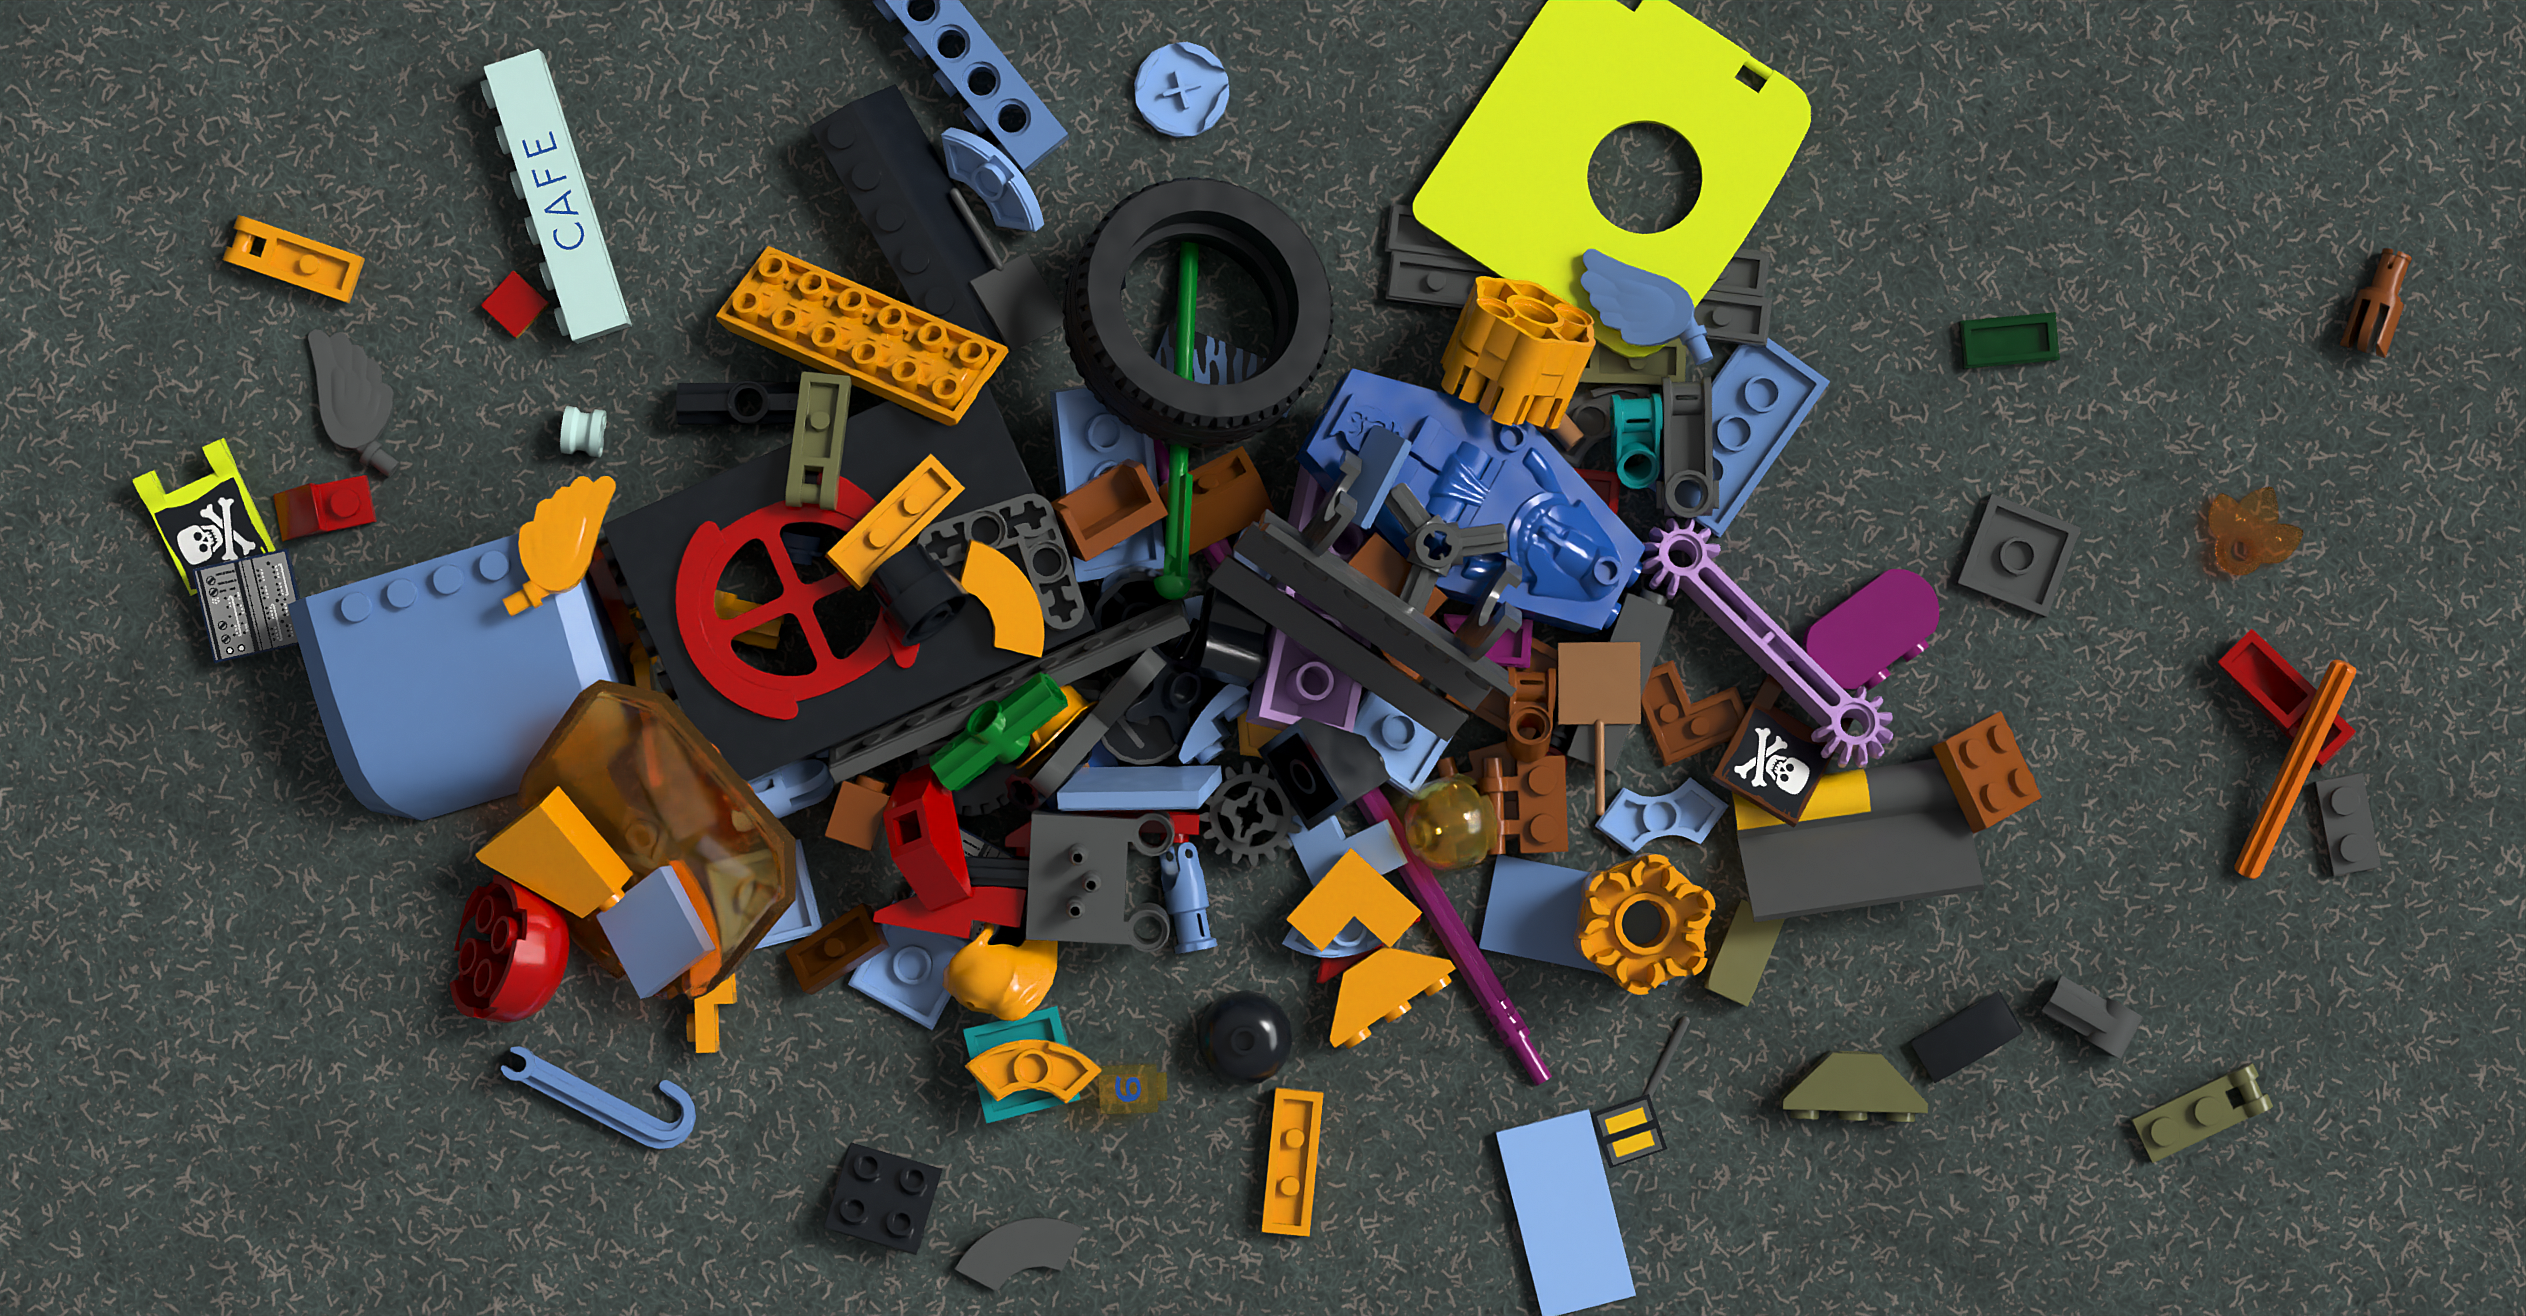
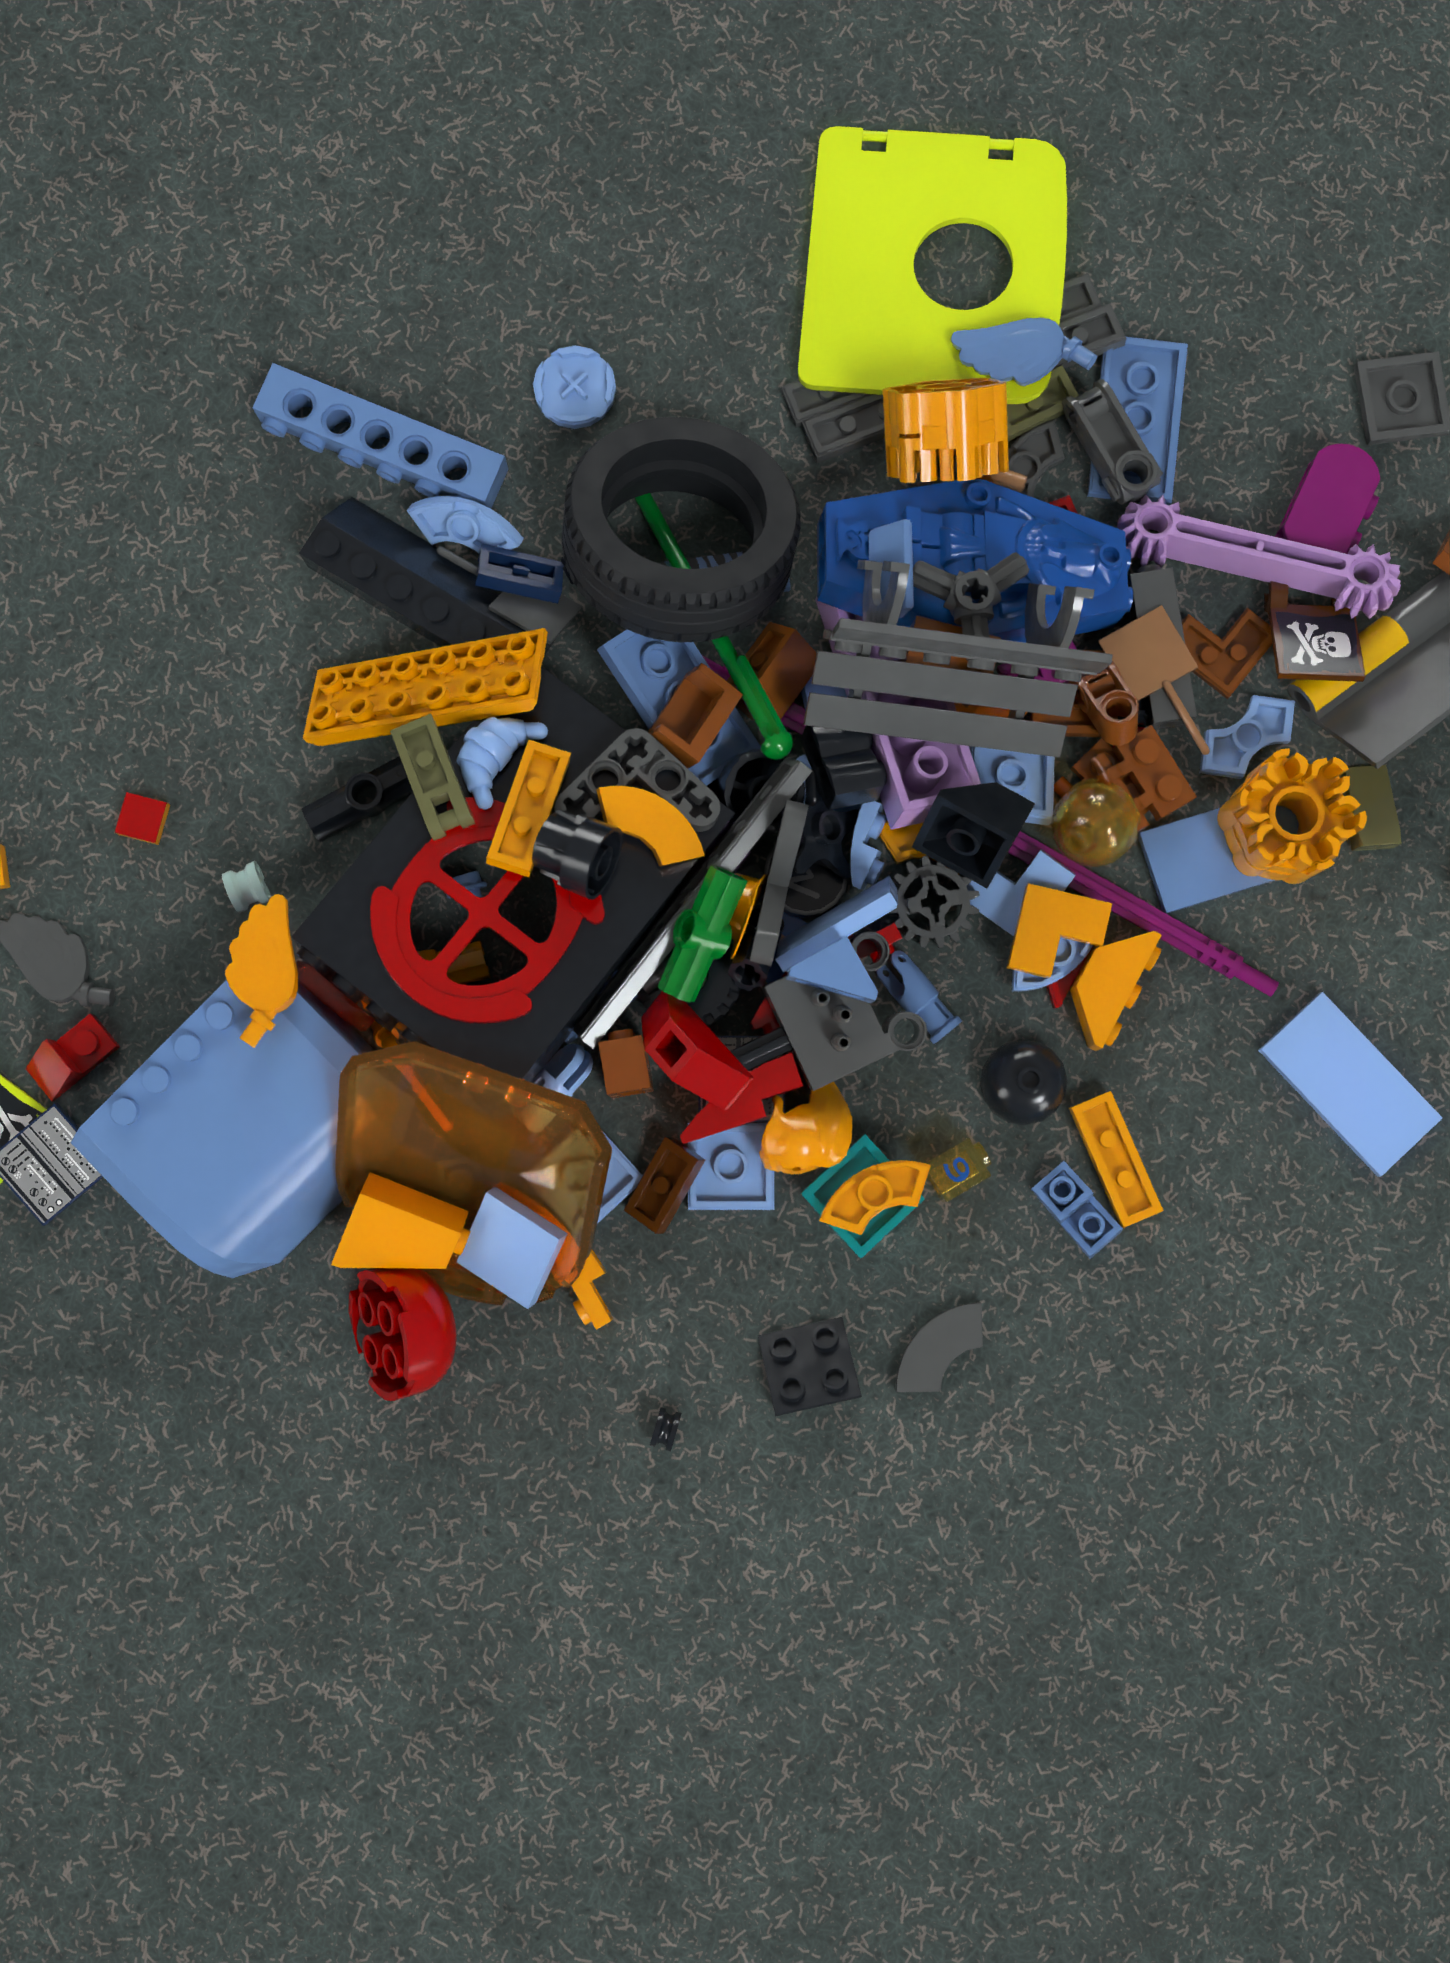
camera: 30 degrees left, 5 degrees down
(556, 196) = (131, 716): light aqua brick -> none
(605, 1106) = (545, 1414): medium blue piece -> none
(712, 1183) = (665, 1429): none -> black bush
(887, 442) = (490, 749): none -> light blue piece
(1017, 266) = (519, 573): none -> dark blue tile
(1105, 837) = (836, 971): none -> medium blue slope
(1227, 1190) = (1077, 1209): none -> medium blue slope
(1631, 1127) = (1360, 989): piece -> none
(1636, 430) = (1064, 448): teal piece -> none
(2009, 340) = (1303, 245): dark green tile -> none

